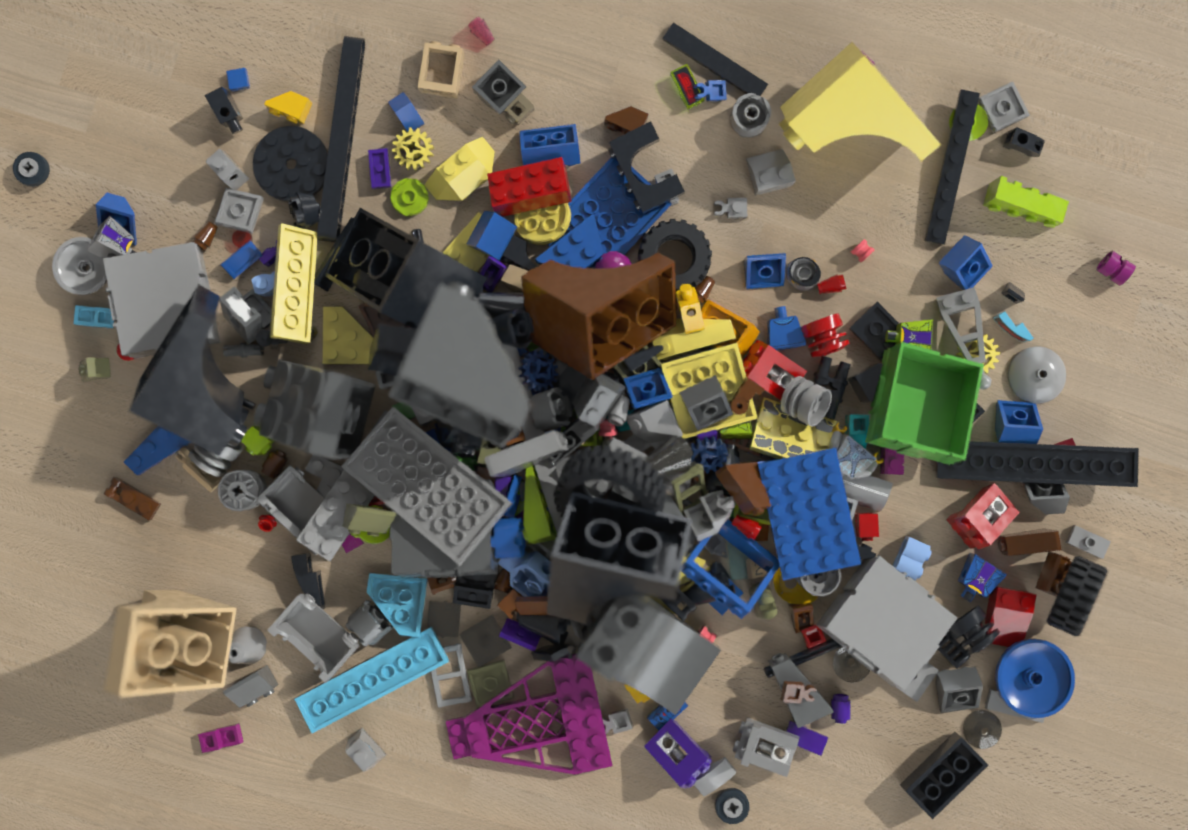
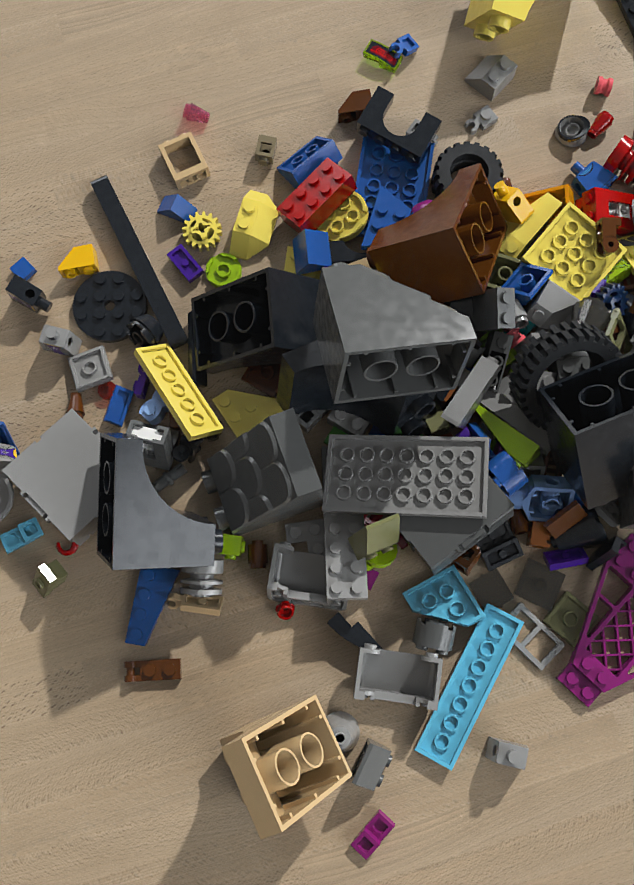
camera: 35 degrees left, 10 degrees down
(249, 481) = (257, 598): light grey wheel -> none
(498, 87) = (239, 142): dark grey slope -> none
(639, 358) = (503, 262): black slope -> none
(706, 403) = (581, 260): dark grey slope -> none
(714, 60) = (390, 27): black tile -> none
(754, 105) = (446, 43): light grey brick -> none
(764, 270) = (541, 145): blue slope -> none

